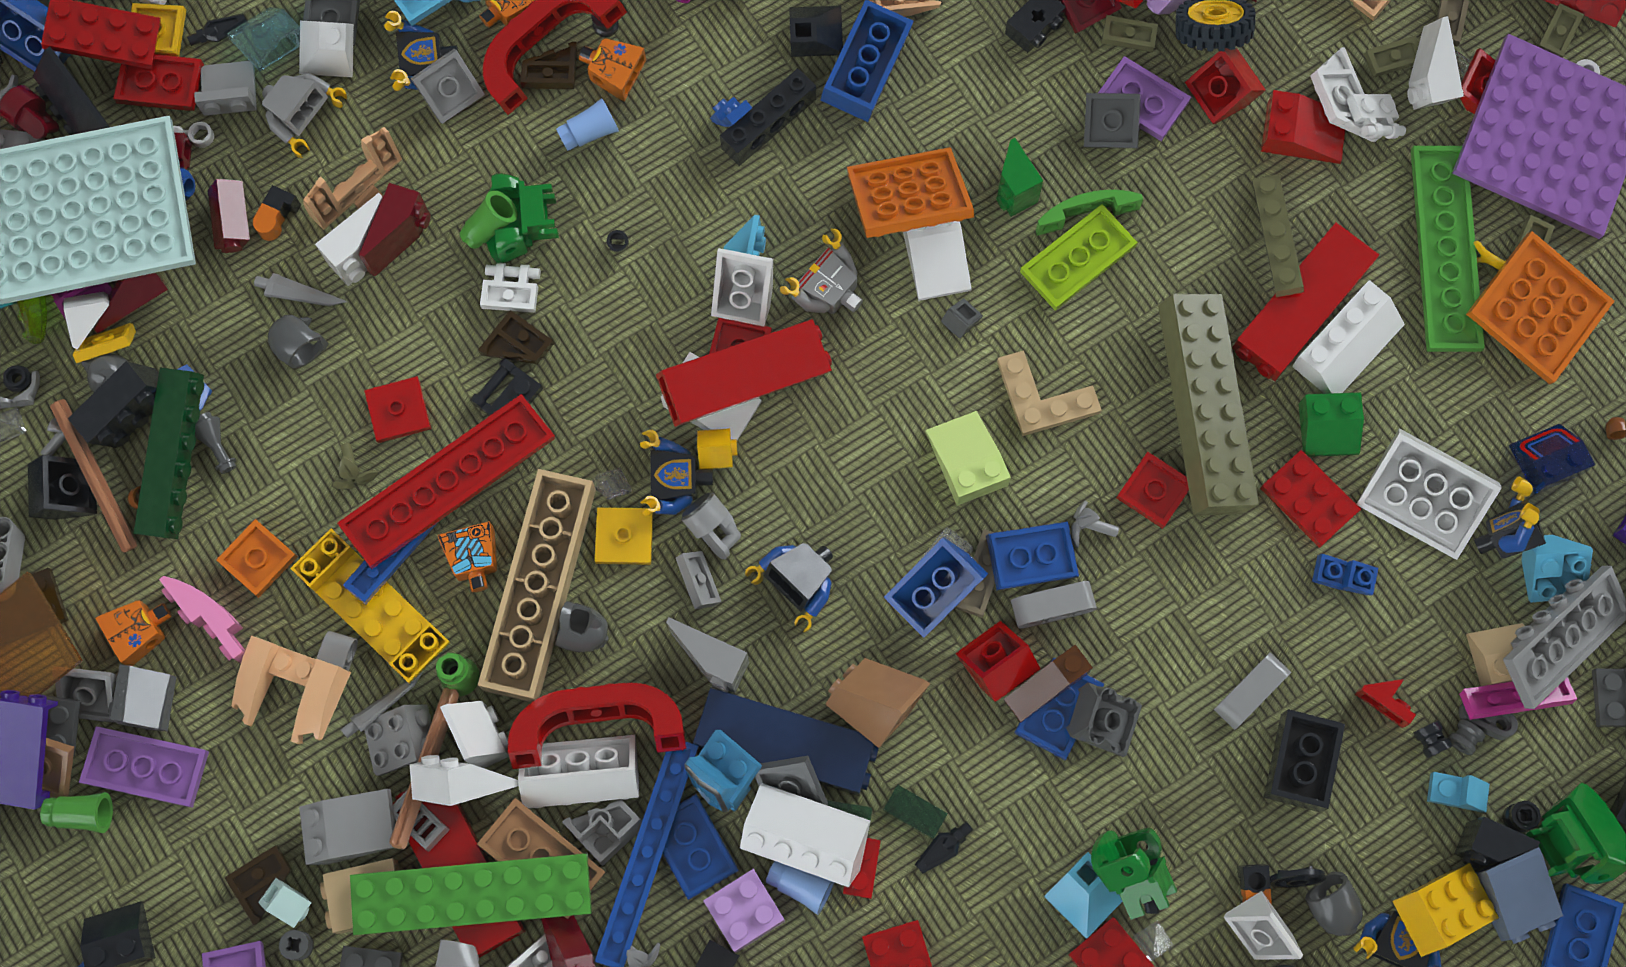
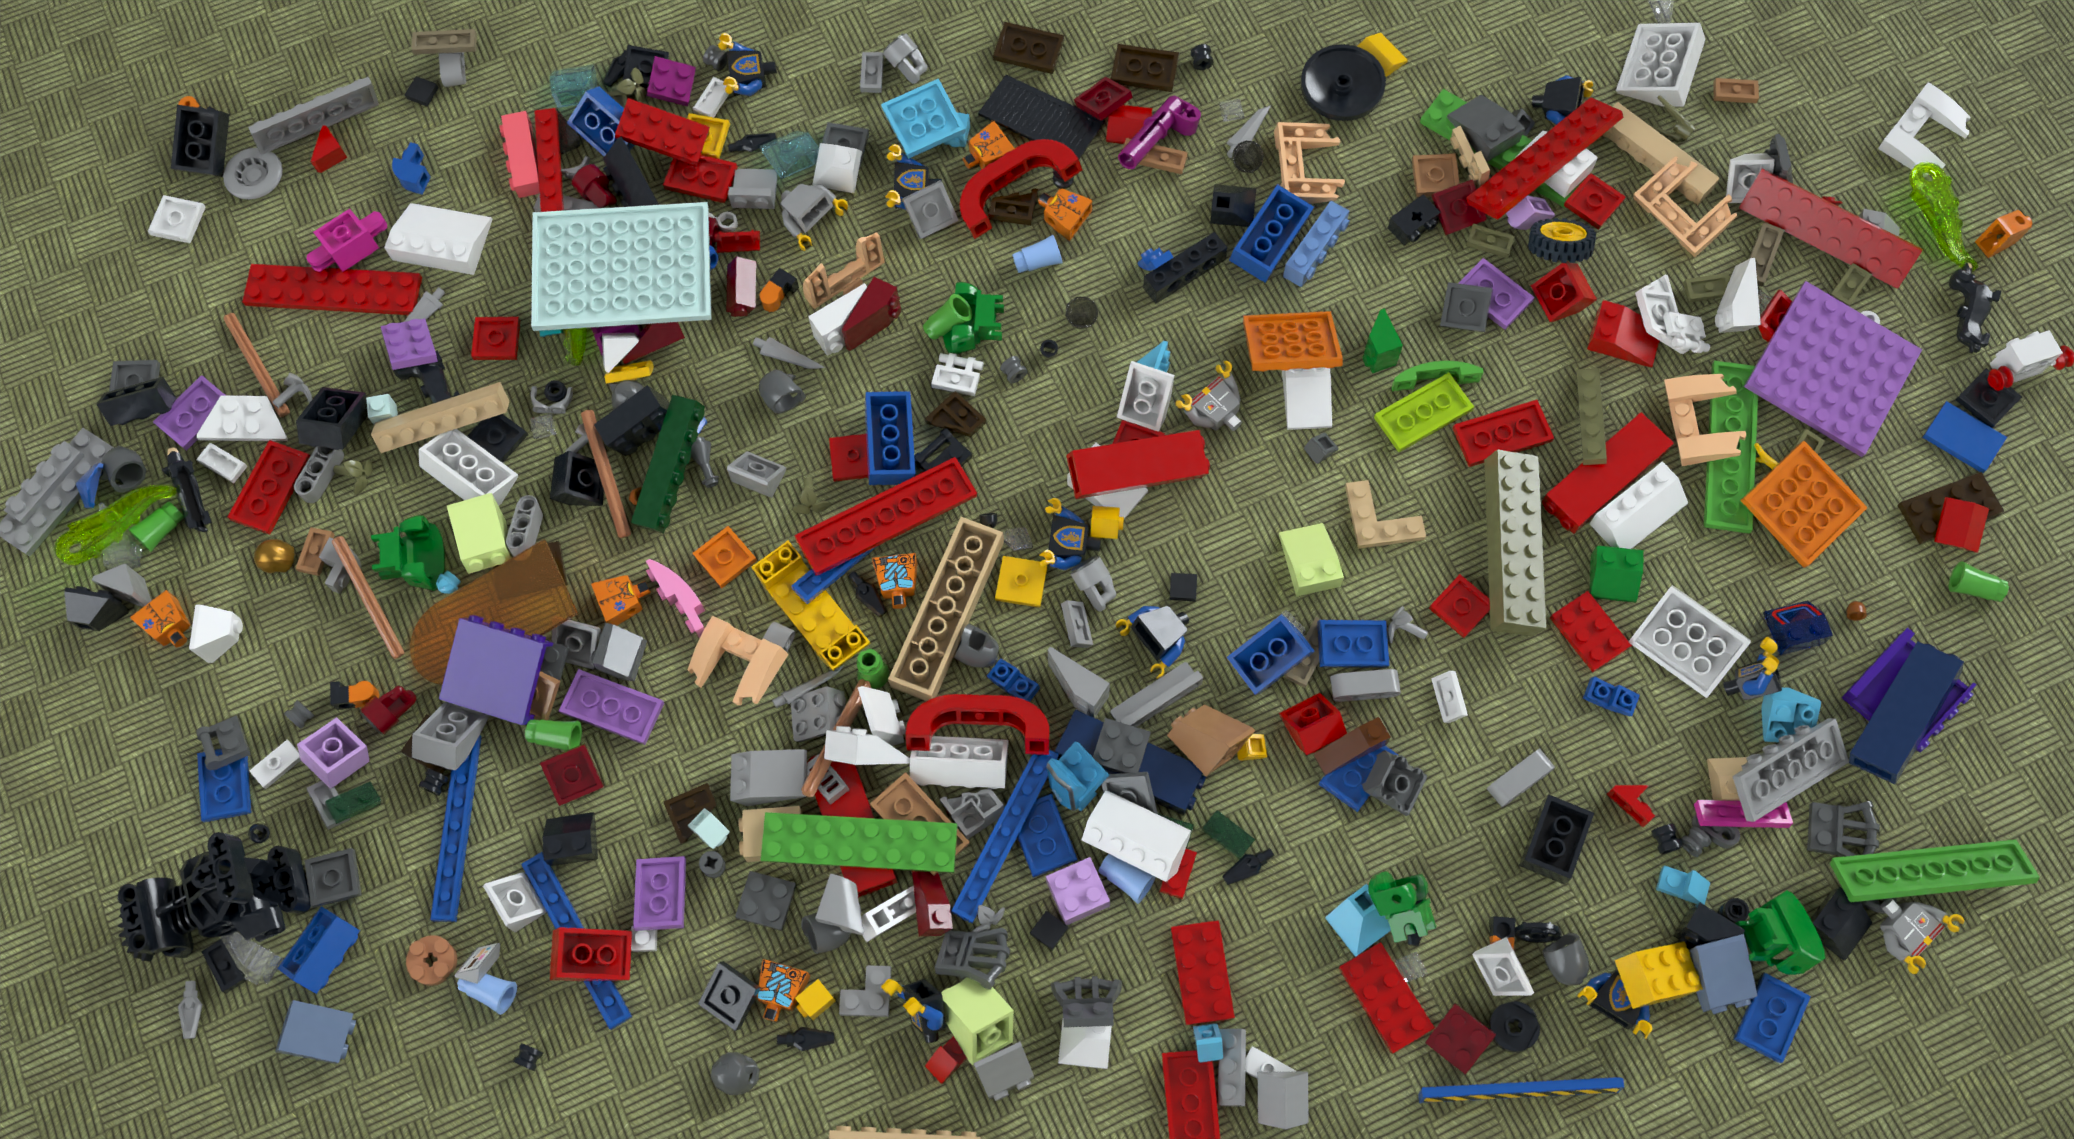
camera: 10 degrees right, 5 degrees down
(106, 860) = (571, 774): none -> dark red plate
(217, 157) = (738, 241): none -> red hinge
(281, 447) = (756, 473): none -> light grey slope
(437, 381) = (889, 437): none -> blue brick
(439, 579) = (867, 594): none -> black piece
(573, 463) = (988, 518): none -> black hinge
(578, 273) = (1013, 369): none -> dark grey wheel
(631, 662) = (1012, 681): none -> blue slope
(650, 190) = (1081, 312): none -> clear smoke hair
(772, 727) = (1121, 747): none -> dark grey plate
(806, 655) = (1157, 696): none -> light grey panel
(820, 514) = (1183, 587): none -> black piece
(922, 66) = (1316, 244): none -> medium blue brick
(931, 702) = (1253, 748): none -> yellow slope
(1155, 604) = (1449, 696): none -> white plate
(1176, 269) = (1506, 430): none -> red plate
(1399, 254) = (1691, 445): none -> light nougat wedge

